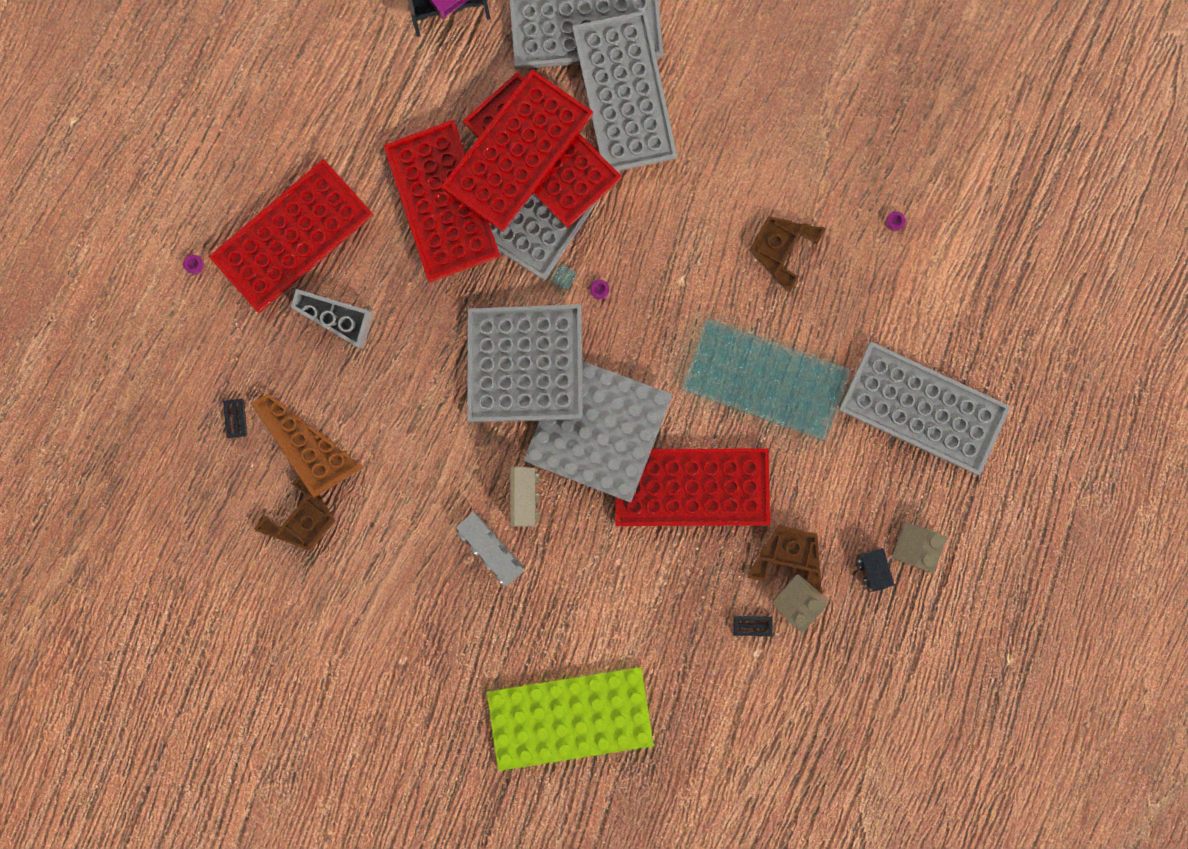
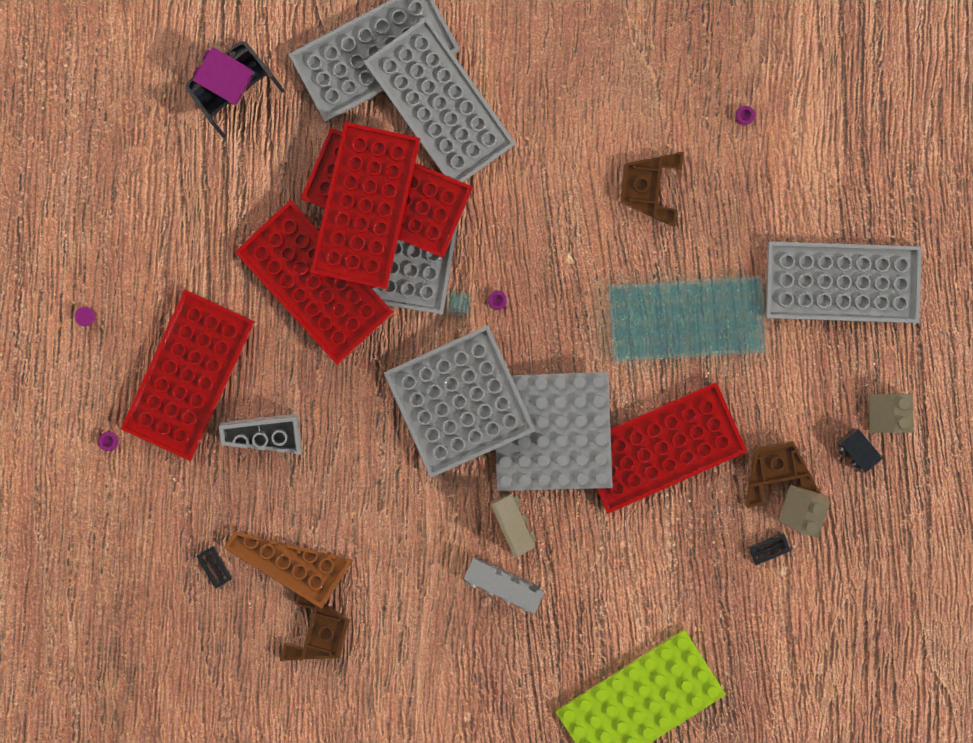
camera: 25 degrees left, 5 degrees up
(225, 145) = (85, 316): none -> magenta tile

